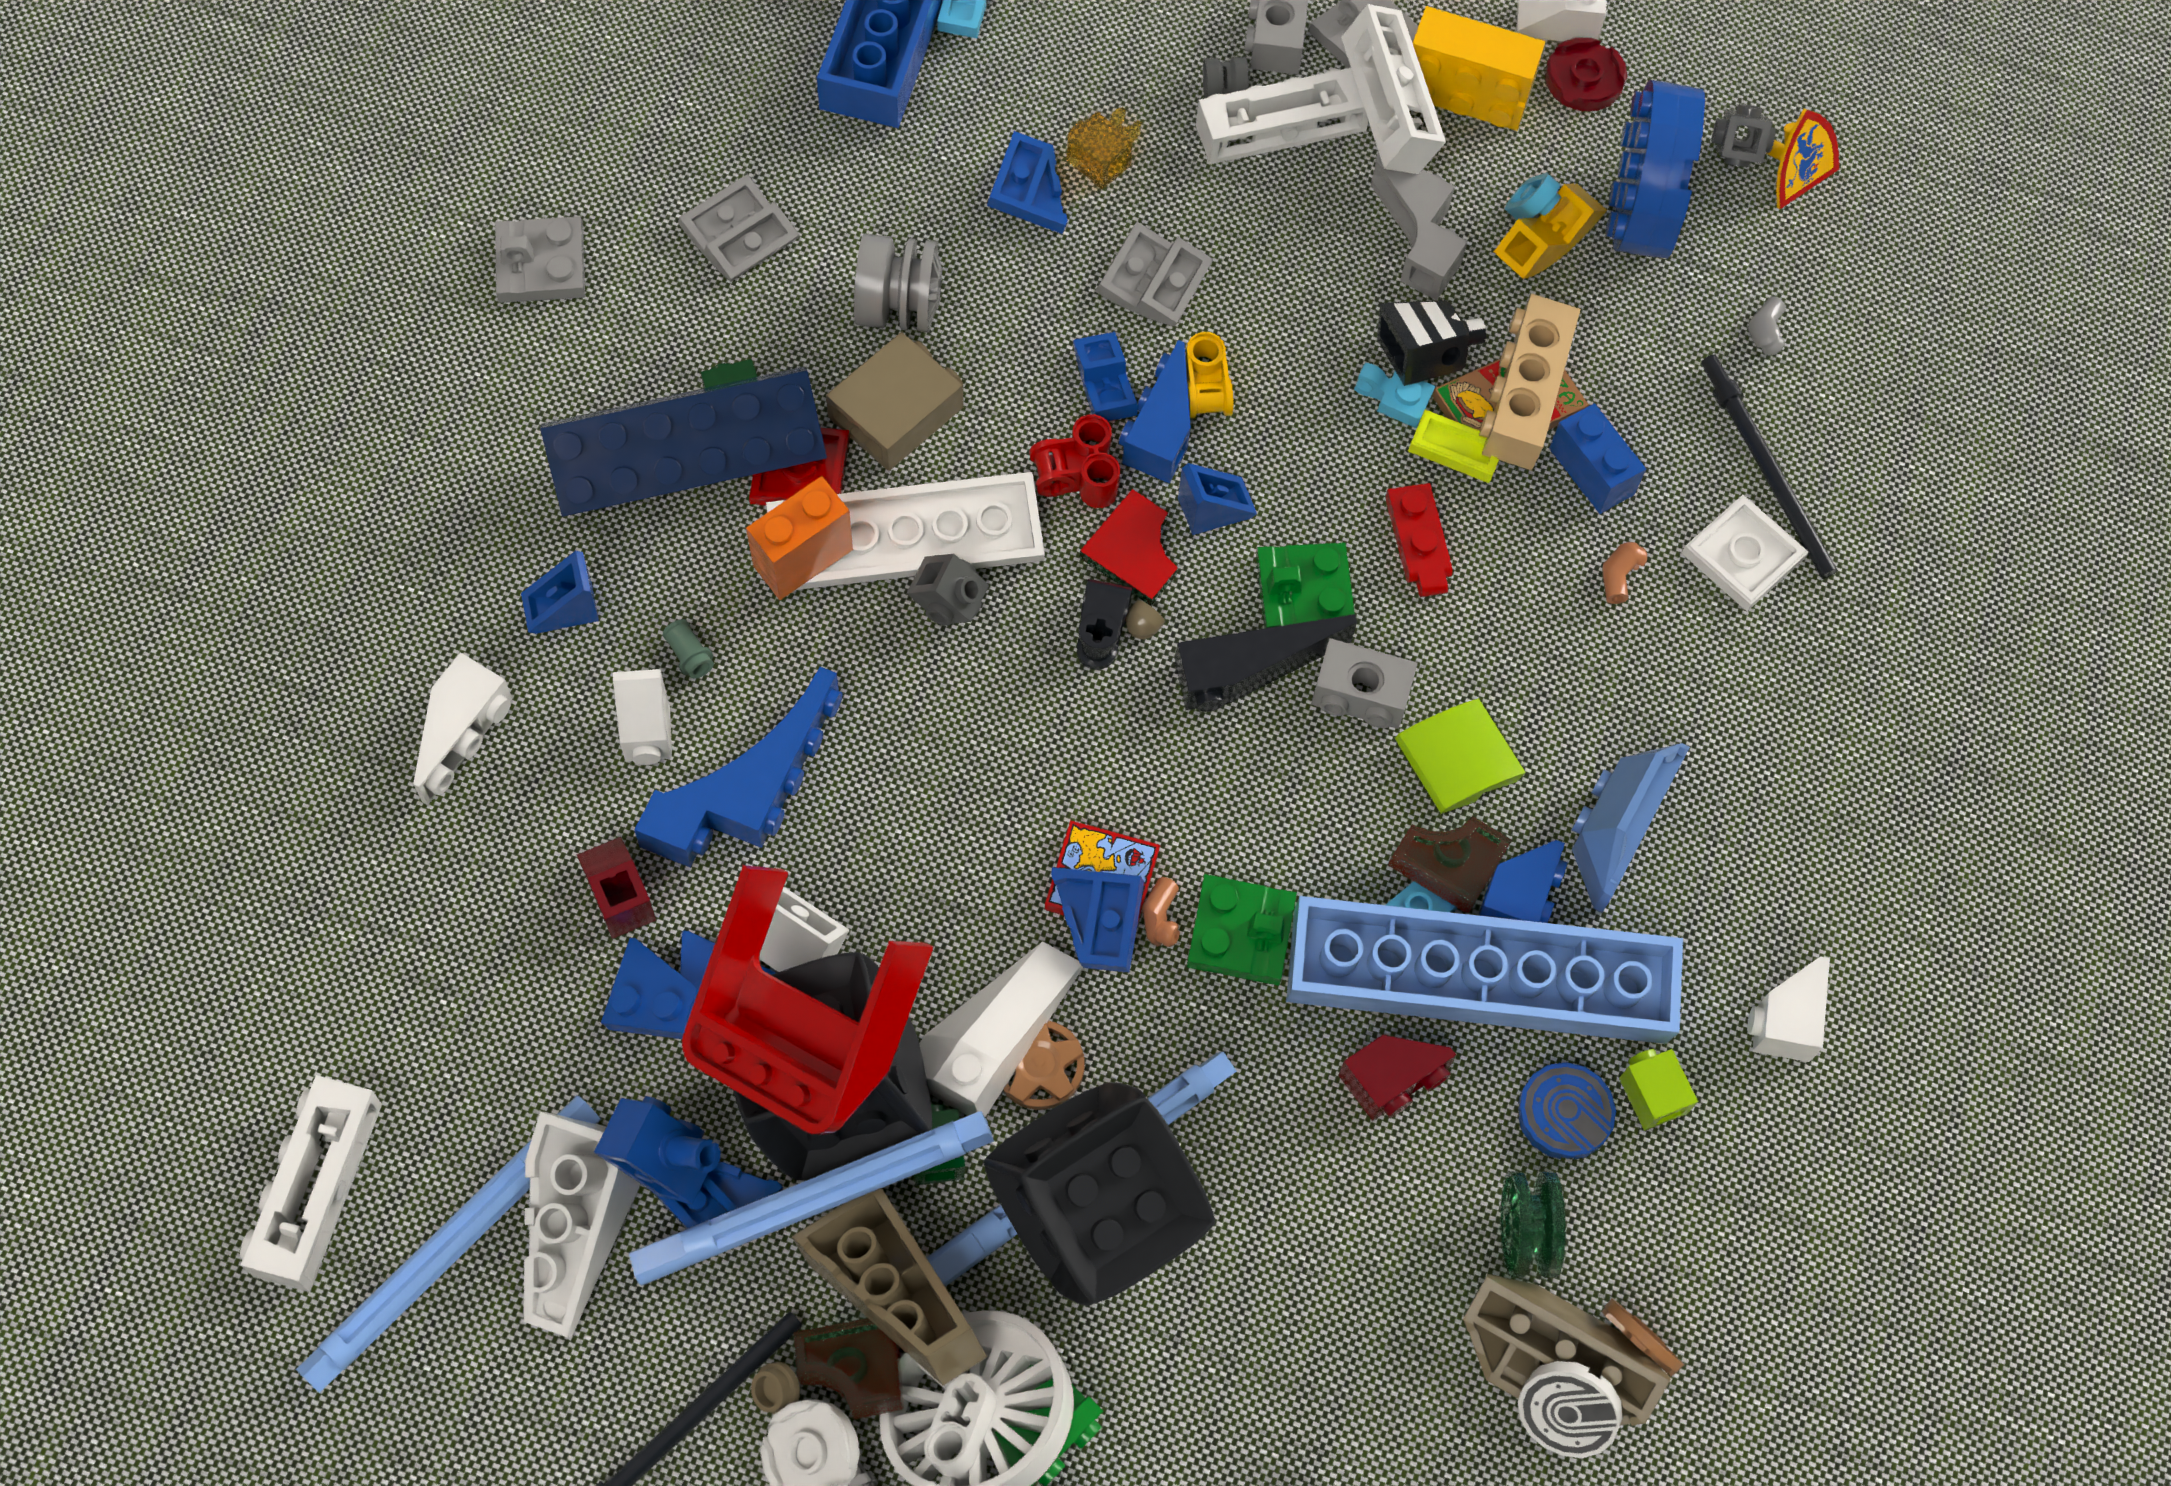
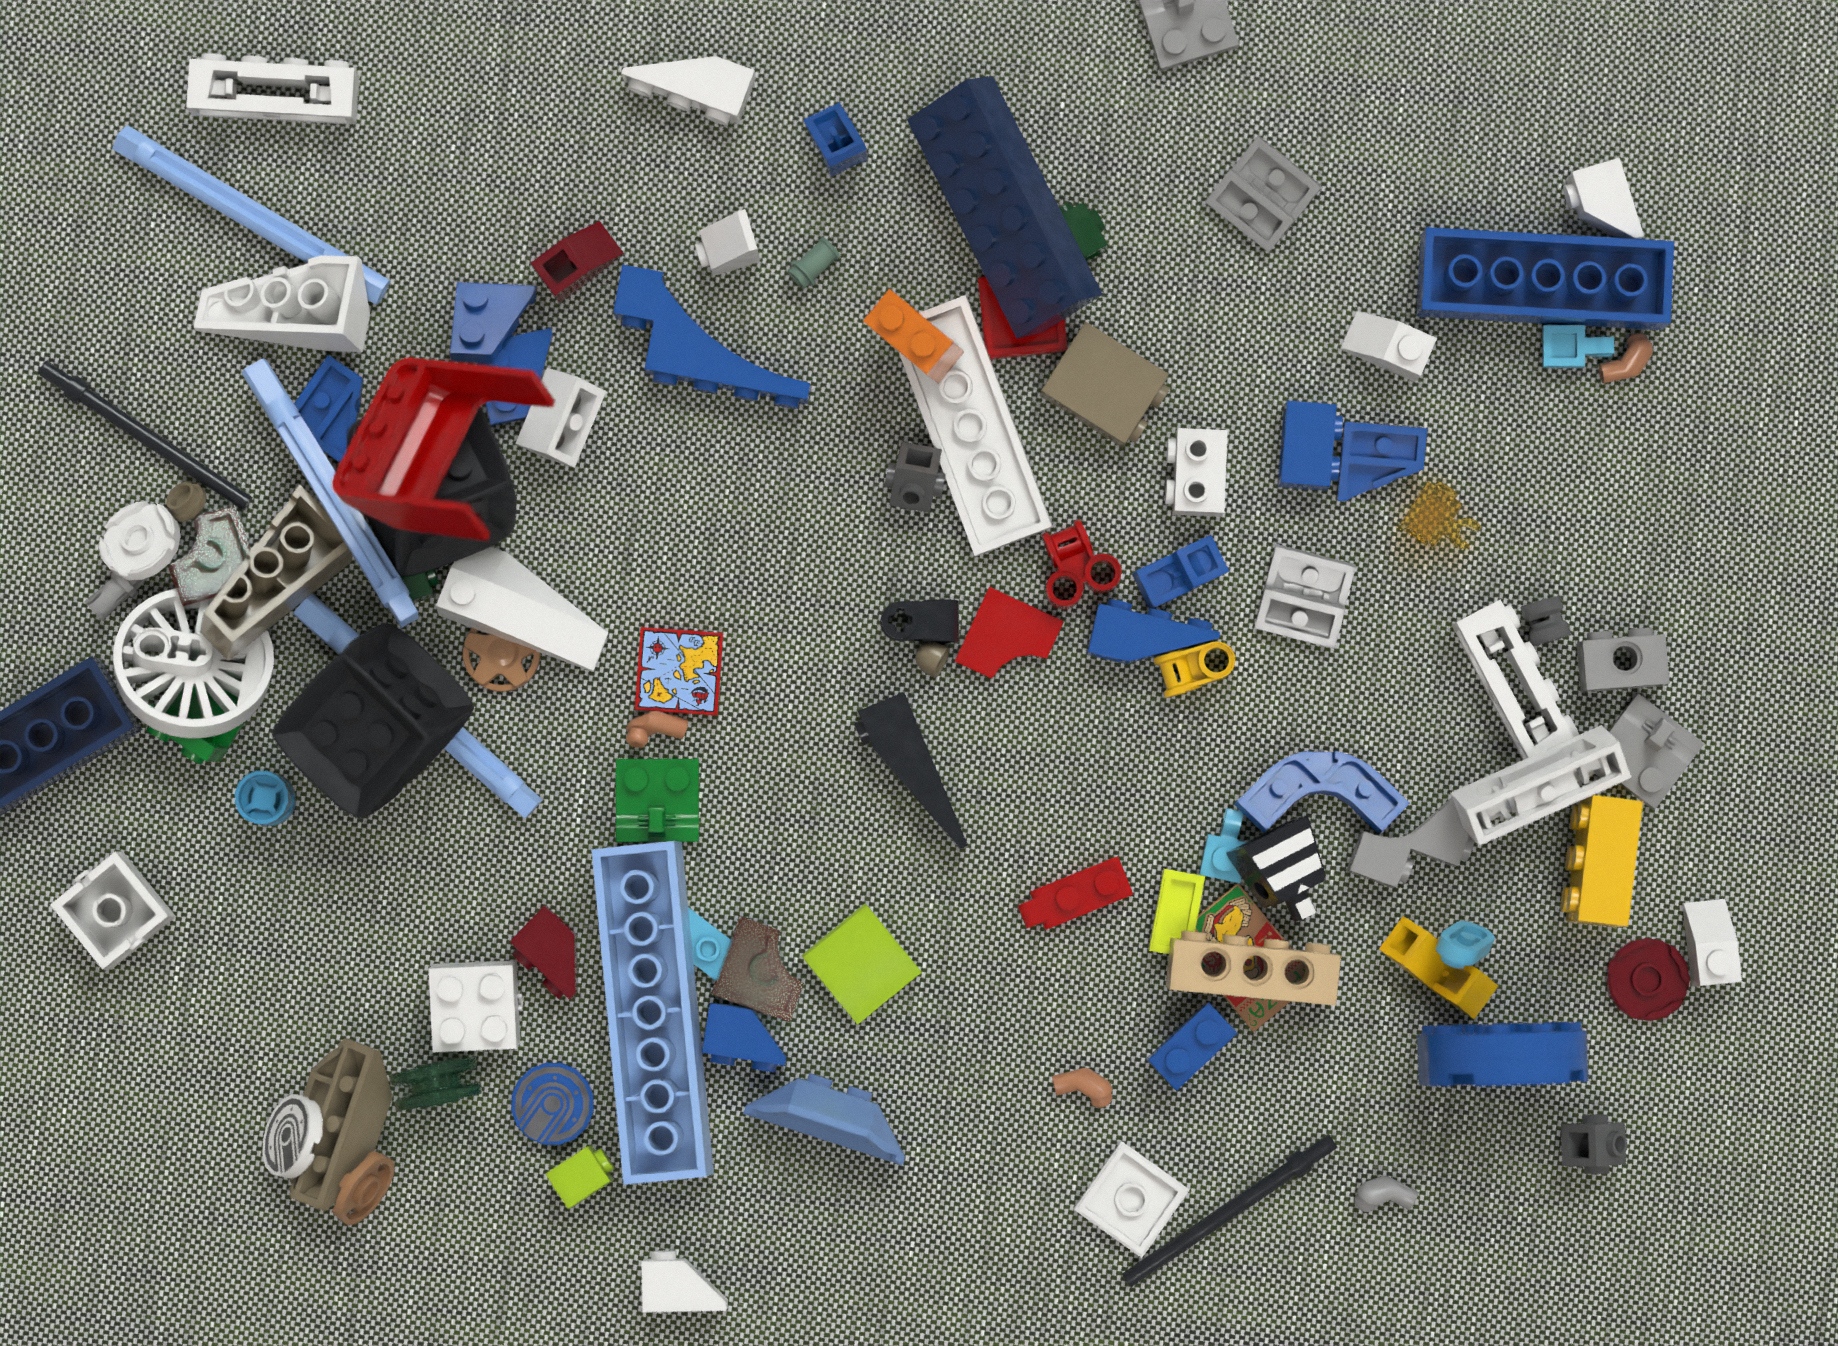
camera: 80 degrees right, 20 degrees up
(658, 1149) = (339, 361): blue brick -> none
(896, 283) = (1220, 357): light grey wheel -> none
(922, 148) = (1389, 344): none -> white slope
(1004, 237) = (1308, 445): none -> blue brick
(1007, 335) = (1198, 472): none -> white brick
(1101, 915) = (633, 677): blue wing -> none
(1157, 1360) = (265, 798): none -> dark azure wheel
(1213, 498) = (1071, 701): blue slope -> none
(1304, 583) = (1001, 798): green hinge -> none
(1339, 285) = (1327, 774): none -> plate
(1385, 674) = (920, 843): light grey brick -> none
(1445, 1167) = (475, 1006): none -> white brick
(1806, 156) = (1582, 1207): shield -> none

